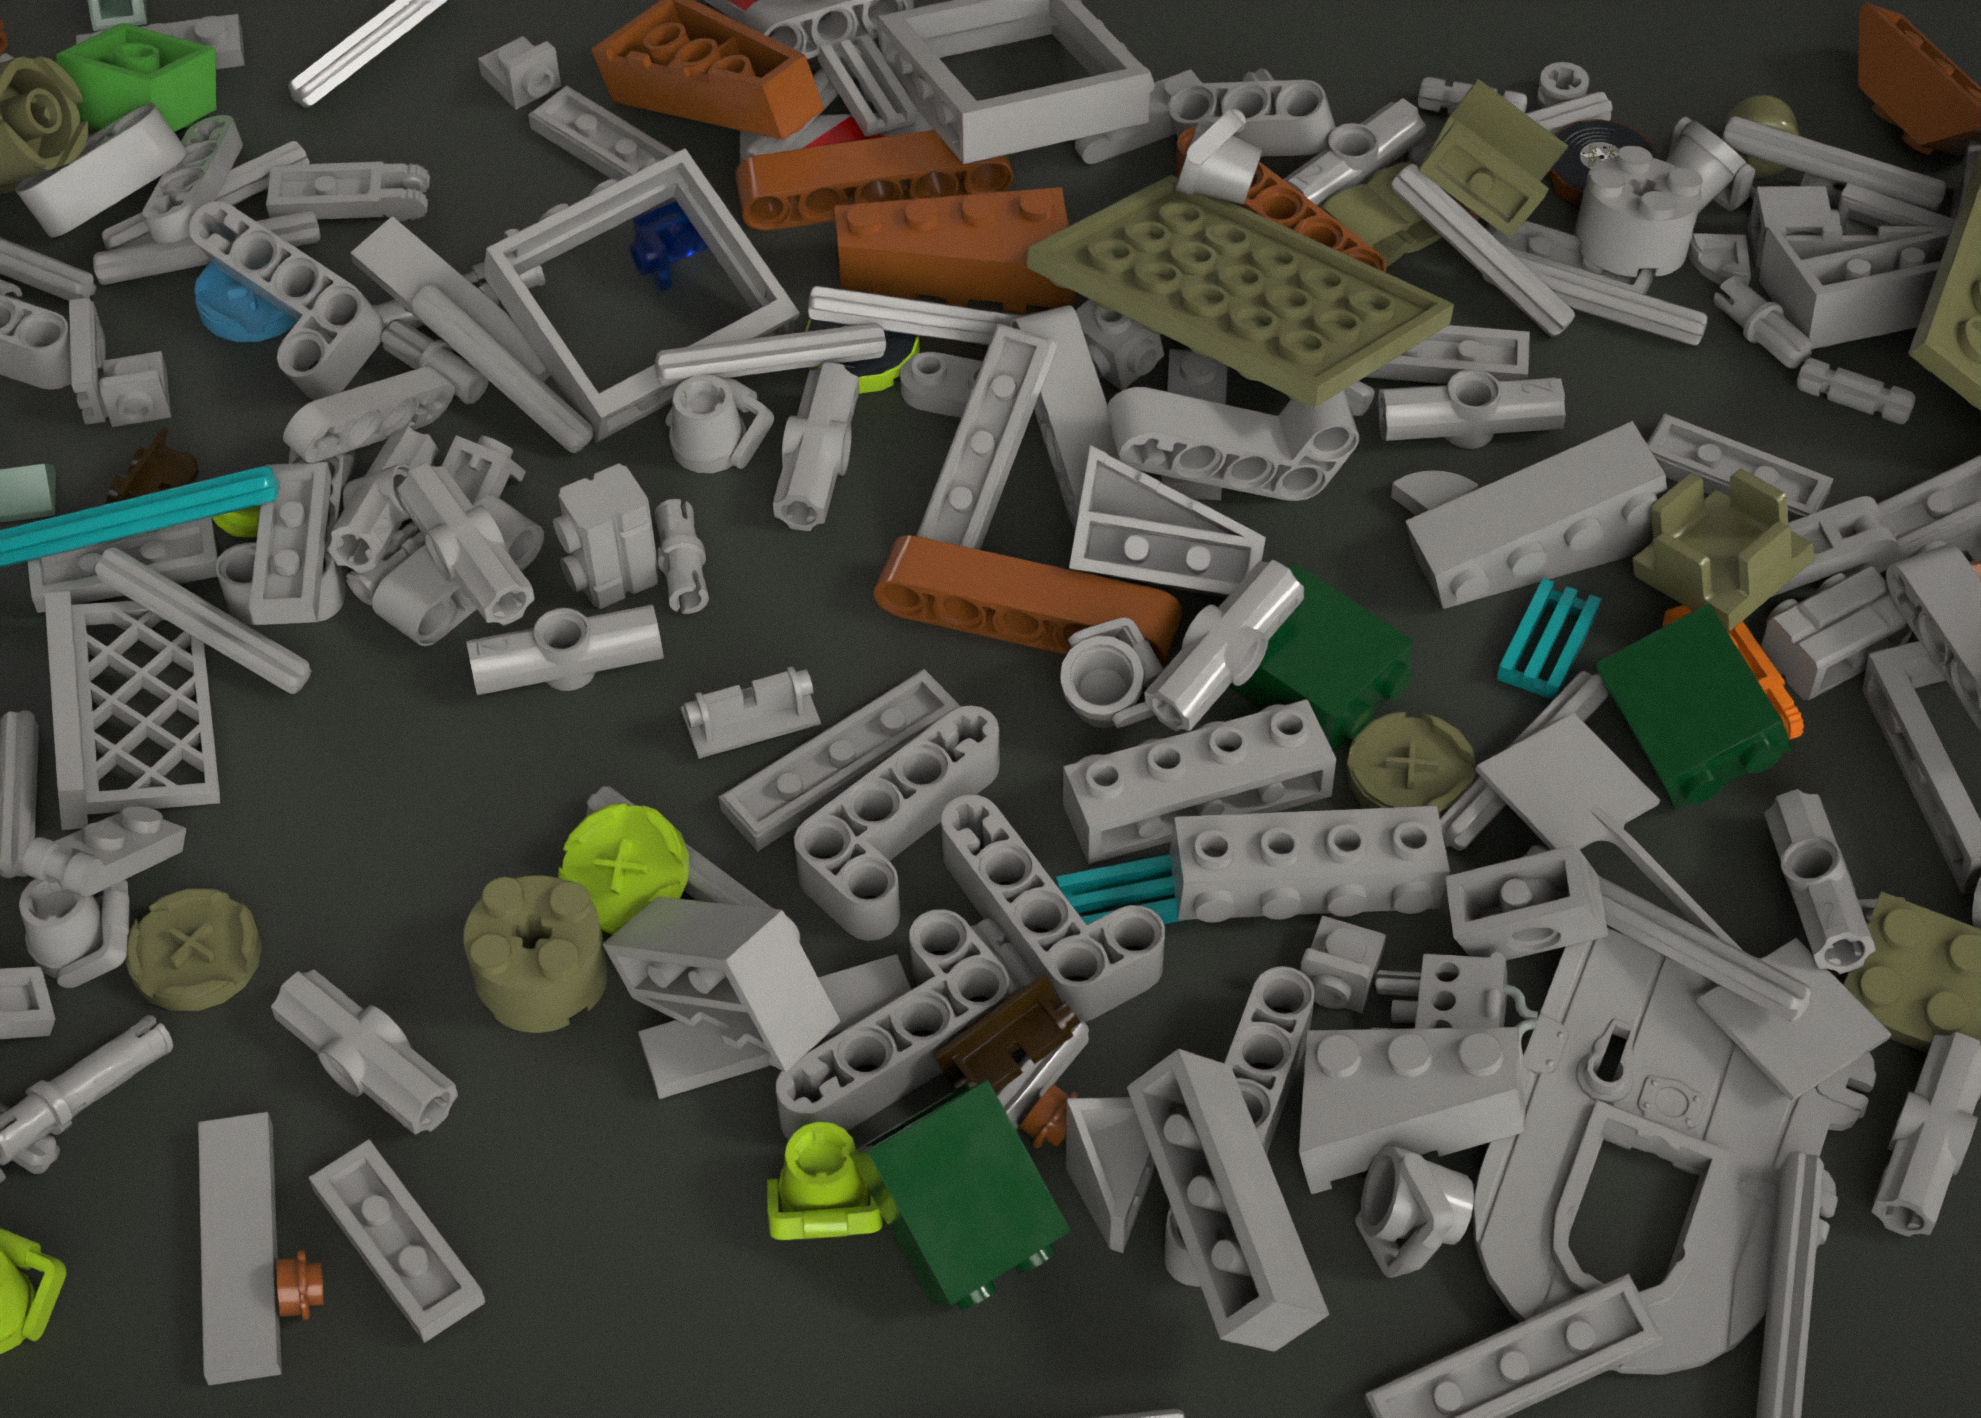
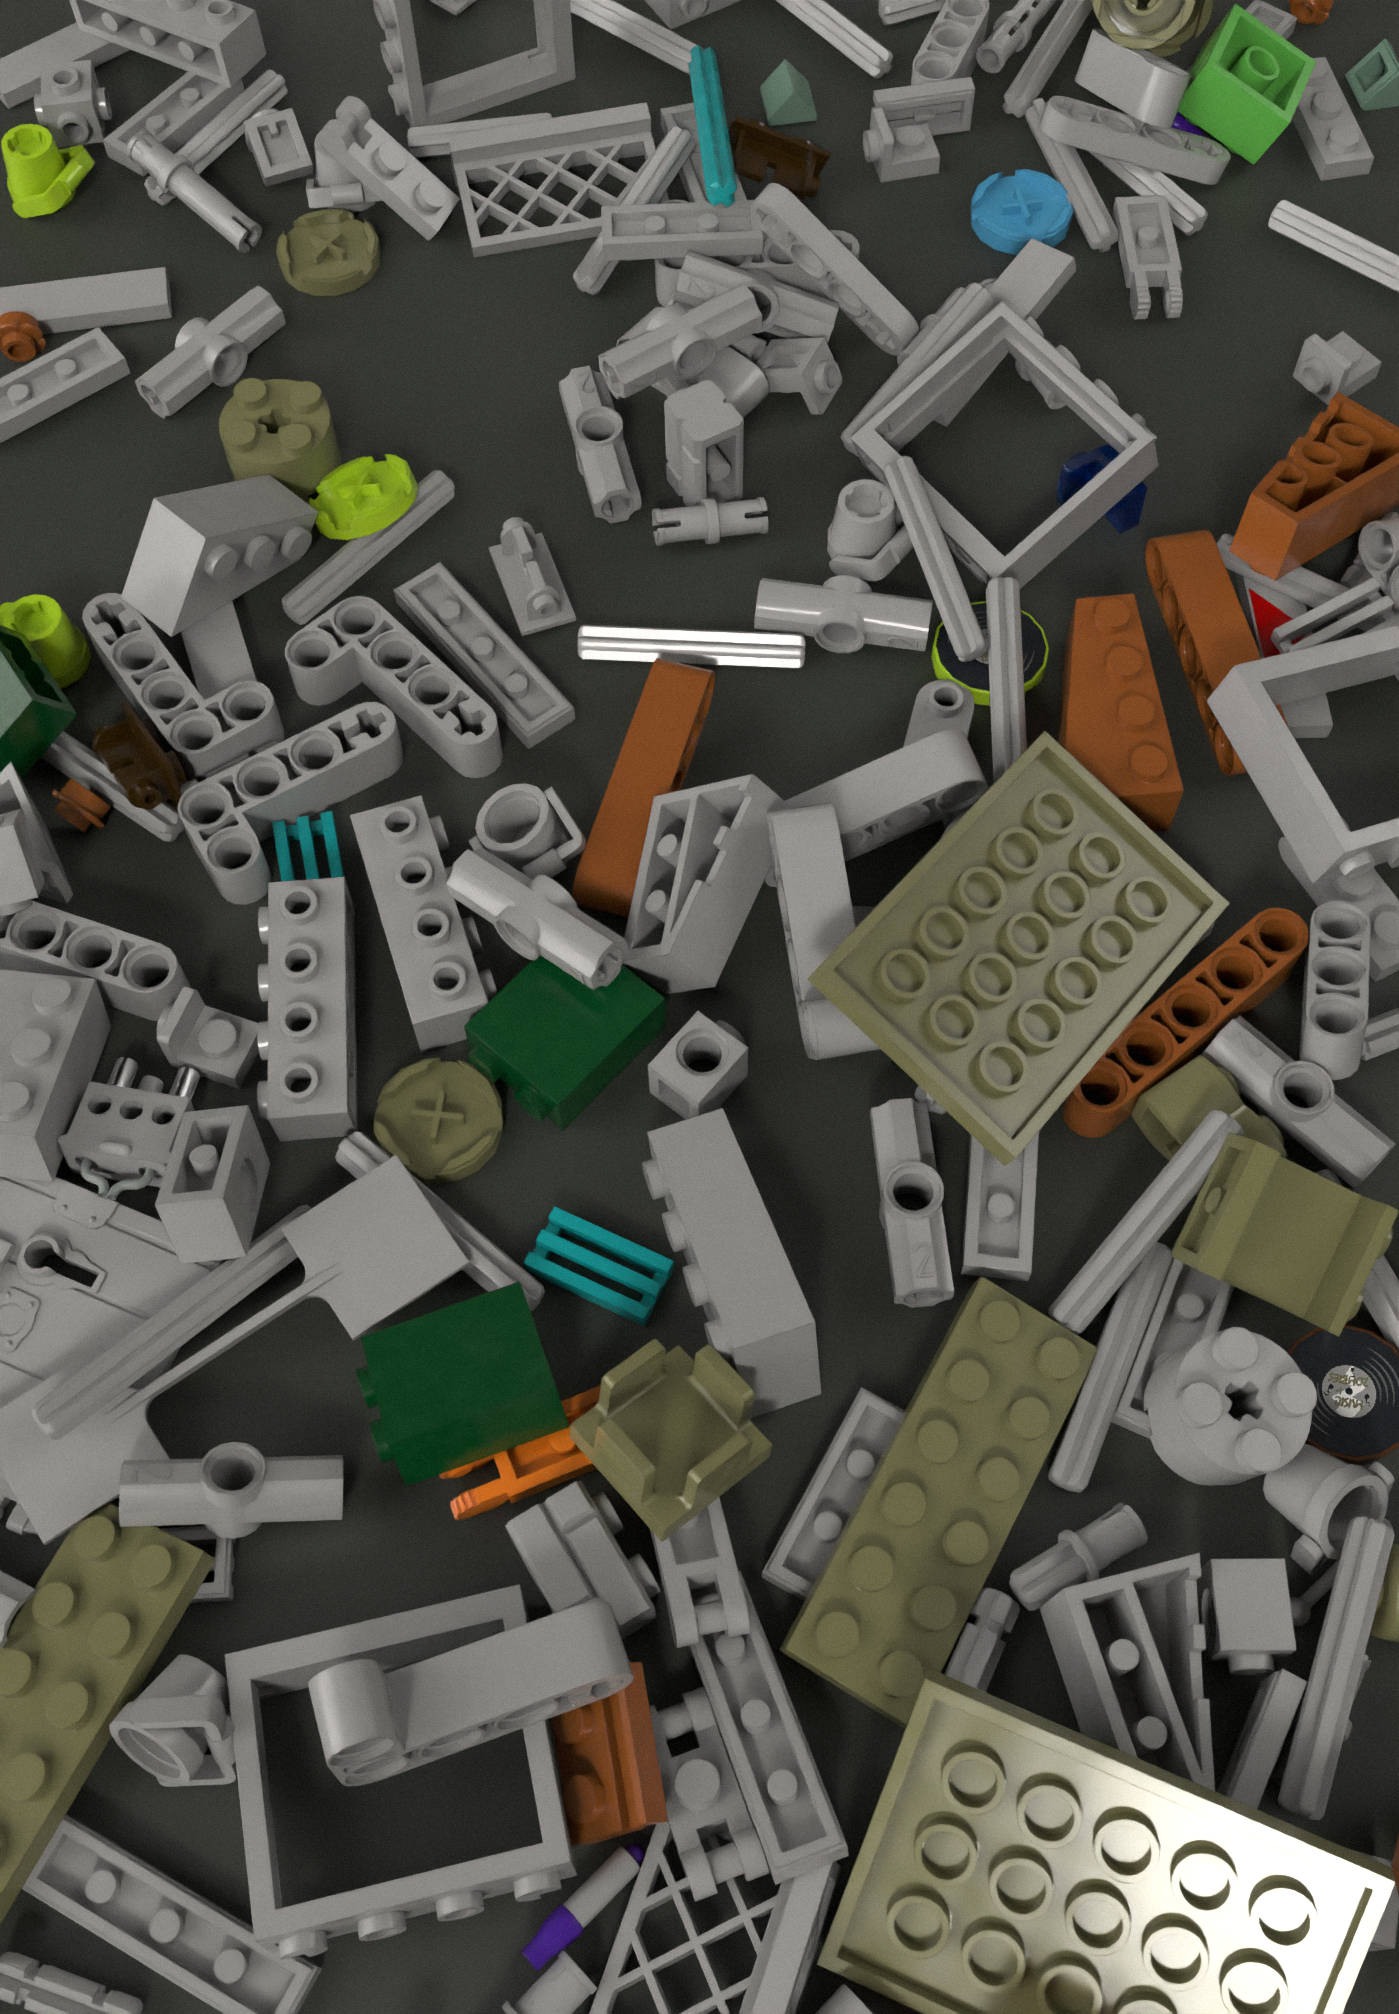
camera: 90 degrees right, 10 degrees up
(282, 282) = (993, 219): light grey beam -> none
(595, 134) = (1247, 443): light grey tile -> none
(844, 577) = (691, 646): none -> axle
(988, 437) = (820, 729): light grey tile -> none
(1219, 161) = (1217, 921): light grey piece -> none
(1352, 553) = (699, 1092): none -> light grey brick
(1430, 489) = (798, 1166): light grey tile -> none
(1720, 256) = (1198, 1526): light grey tile -> none
(1730, 400) = (940, 1502): none -> olive plate

